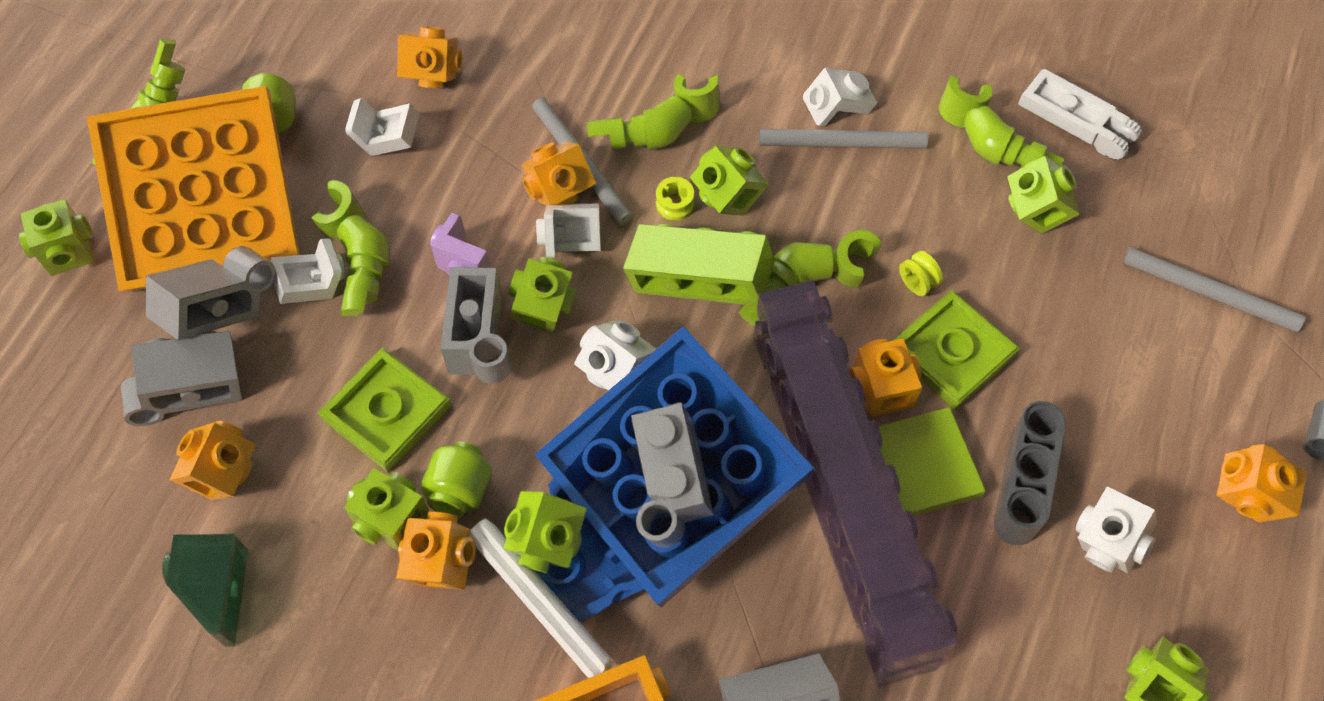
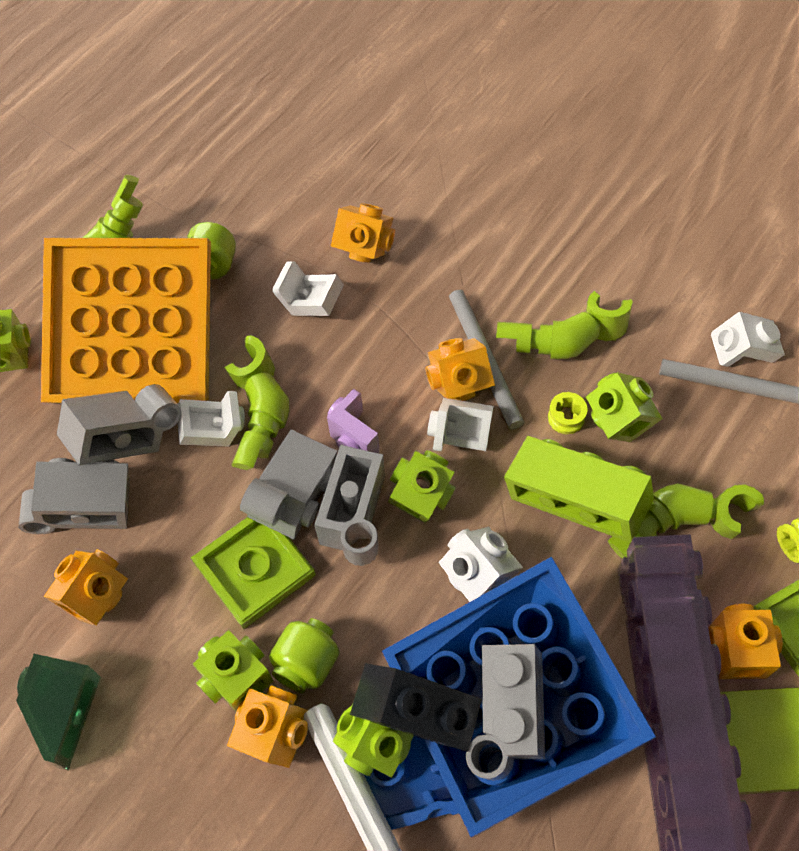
camera: 15 degrees right, 0 degrees up
(406, 319) = (290, 485): none -> light grey hinge
(578, 488) = (416, 706): none -> black brick

